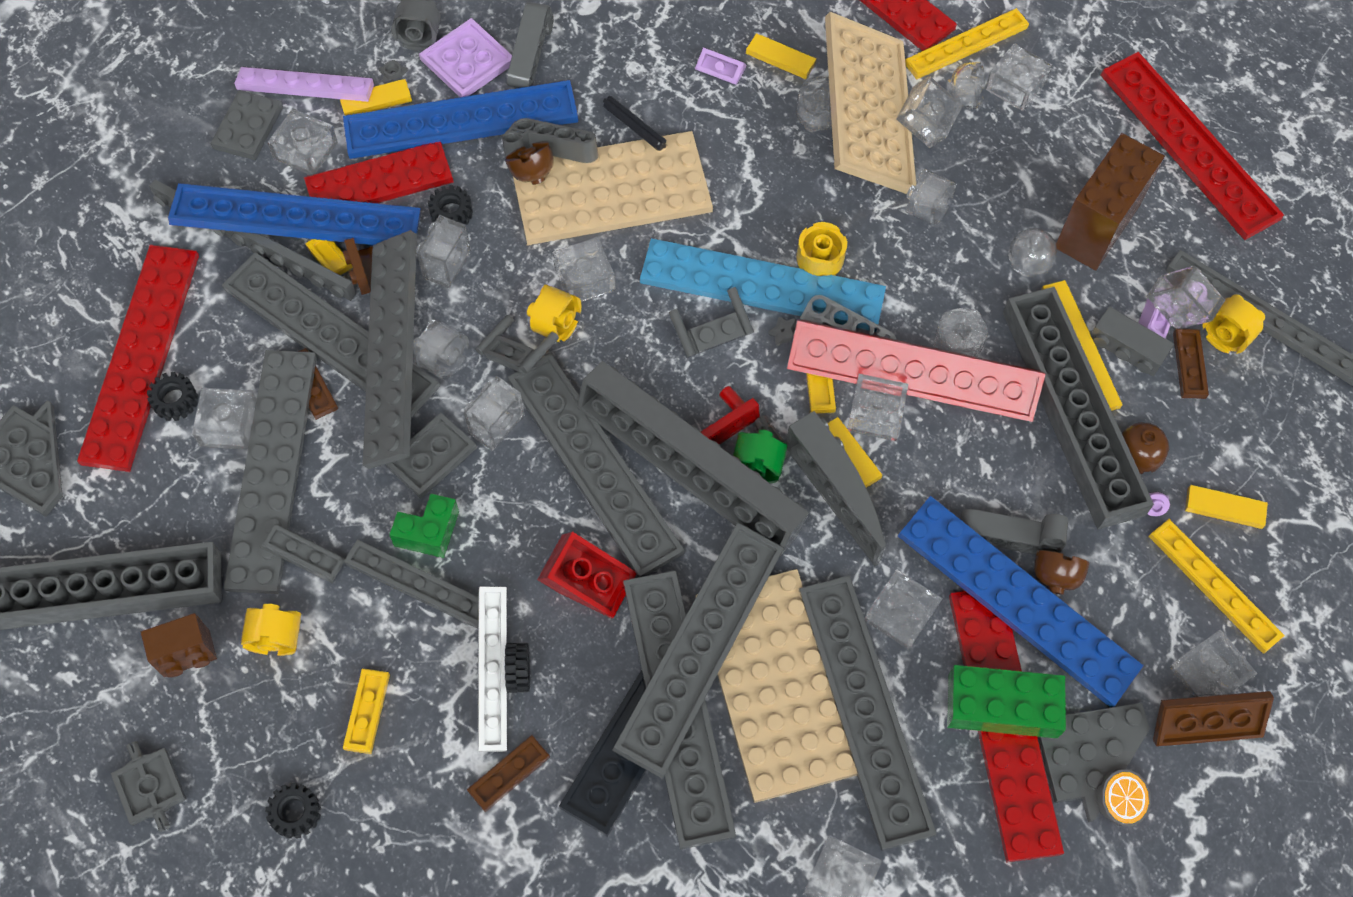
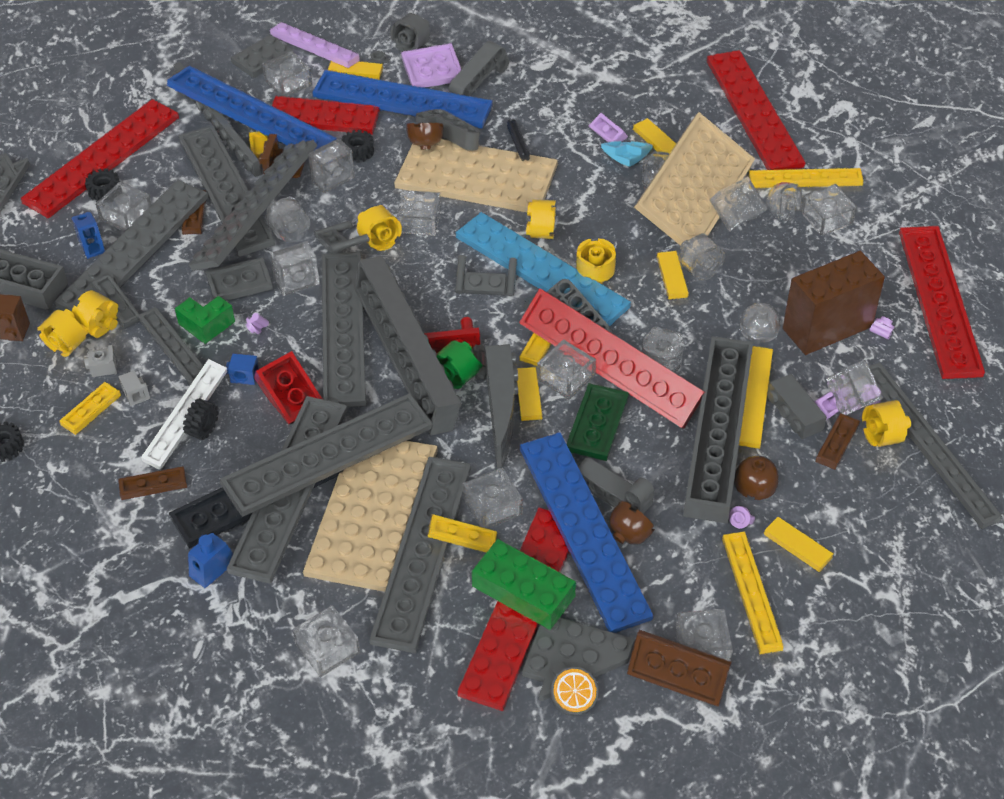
camera: 30 degrees right, 15 degrees down
(197, 469) = (87, 228): none -> blue torso
(295, 585) = (96, 313): none -> yellow brick
(348, 648) = (101, 362): none -> light grey brick
(404, 660) = (134, 388): none -> light grey brick
(489, 508) = (256, 323): none -> lavender plate
(516, 574) = (242, 368): none -> blue brick
(647, 844) = (208, 559): none -> blue torso
(731, 222) = (542, 219): none -> yellow brick
(760, 87) = (627, 152): none -> medium azure brick
(896, 668) = (461, 533): none -> yellow tile
(905, 230) = (672, 275): none -> yellow tile
(945, 455) = (597, 421): none -> dark green plate
(1154, 203) = (882, 327): none -> lavender plate

